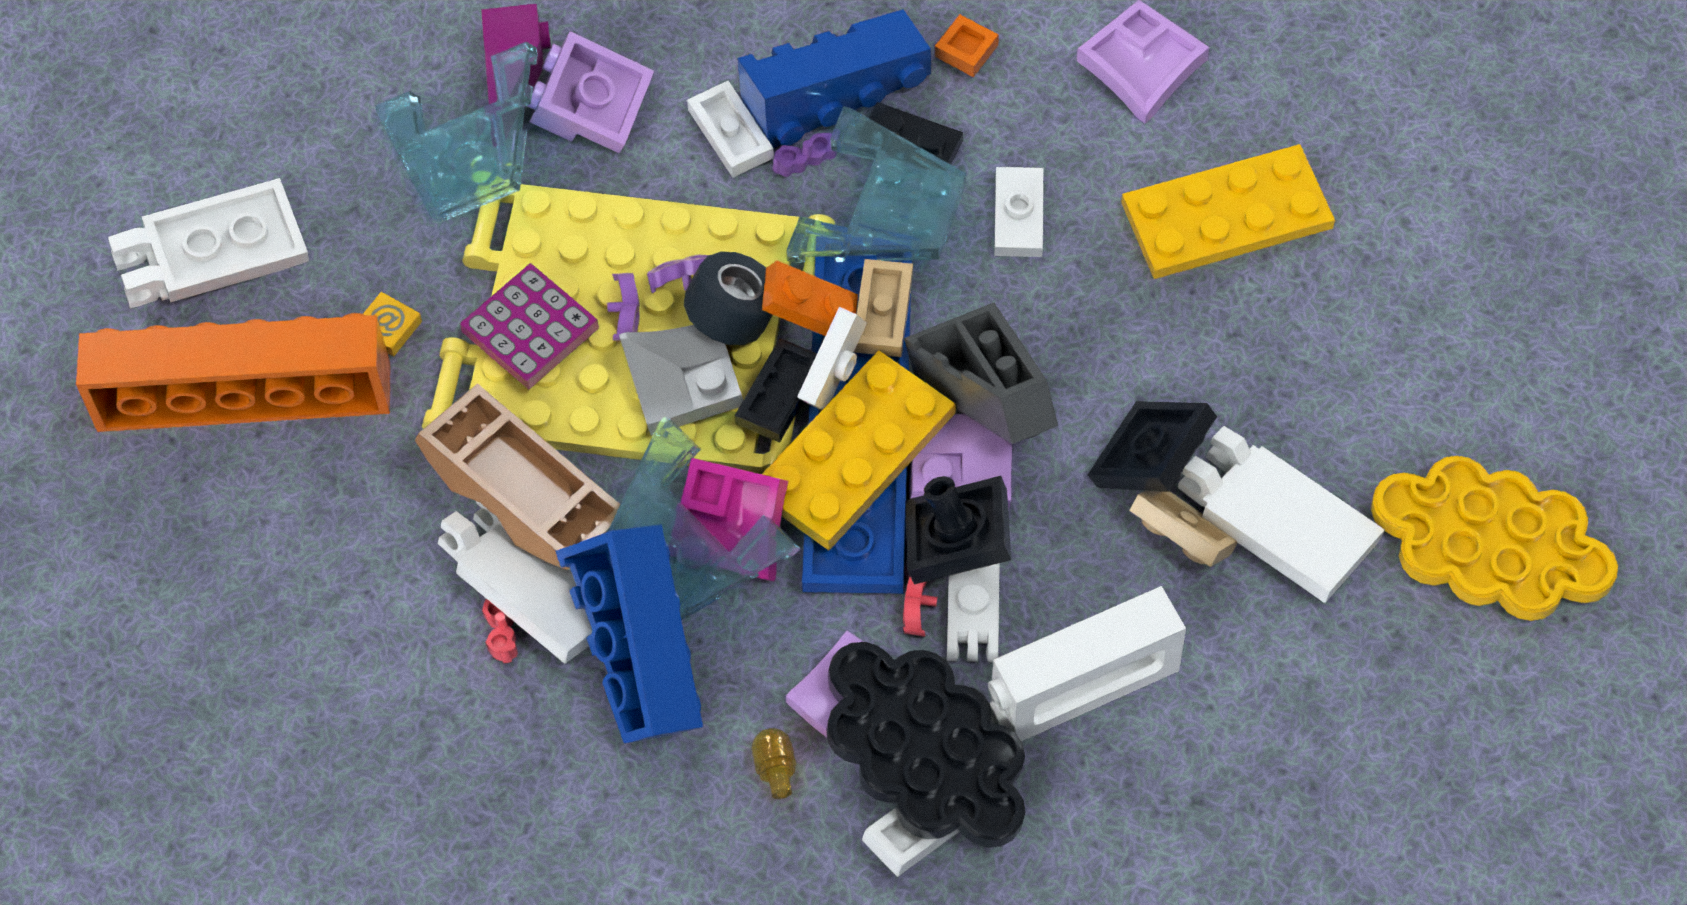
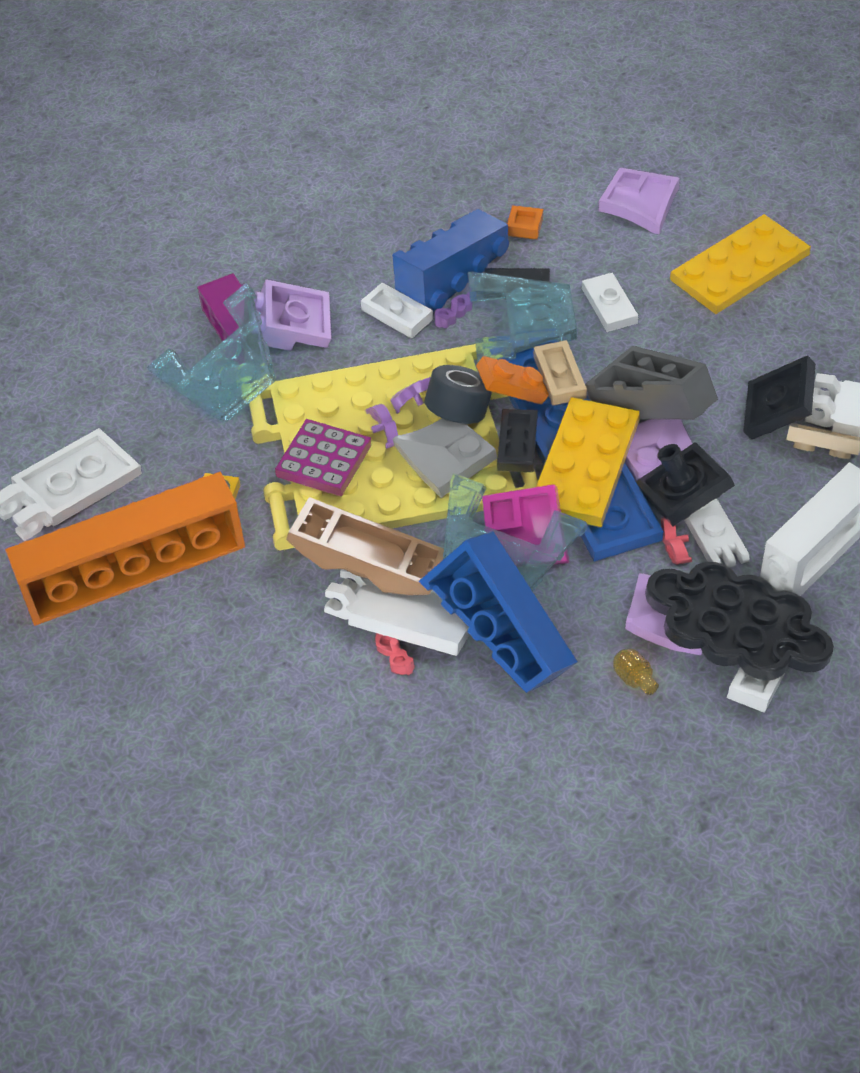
camera: 20 degrees left, 10 degrees down
(834, 359) = (549, 407): white plate -> none

